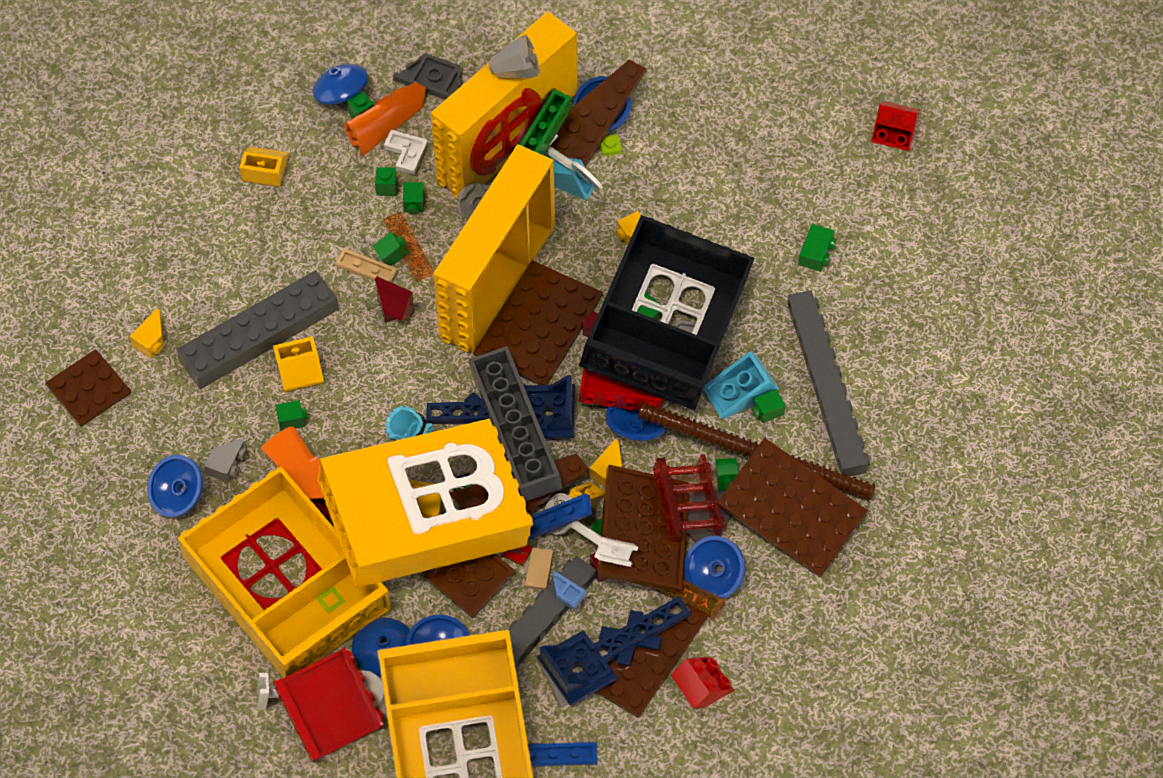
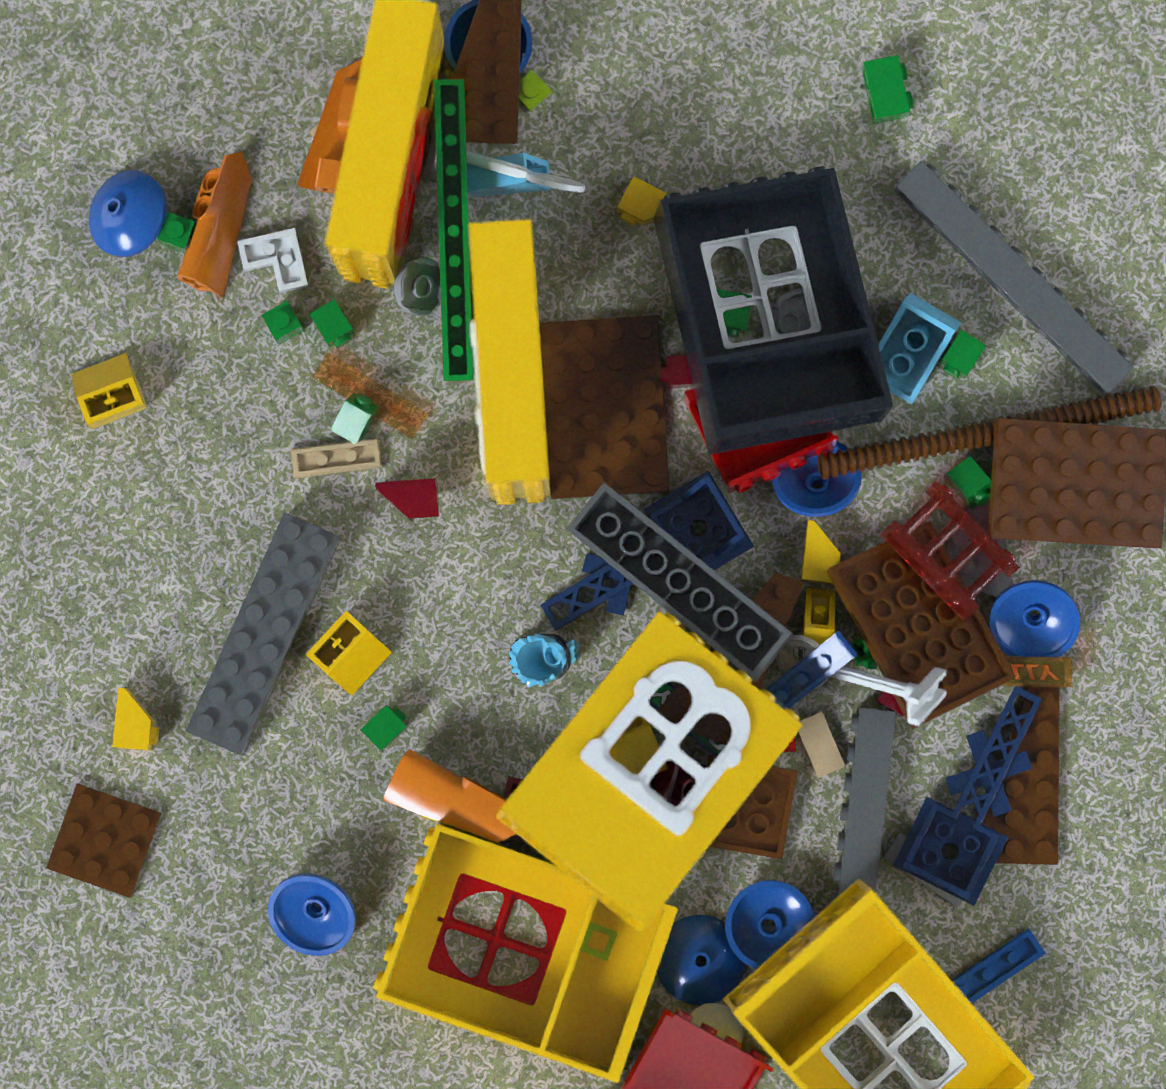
camera: 30 degrees left, 25 degrees up
(225, 459) = (345, 838): light grey slope -> none
(435, 74) = (237, 124): dark grey wing -> none
(515, 60) = (392, 104): light grey cone -> none
(567, 591) = (881, 764): medium blue tile -> none
(701, 681) = (1107, 776): red slope -> none

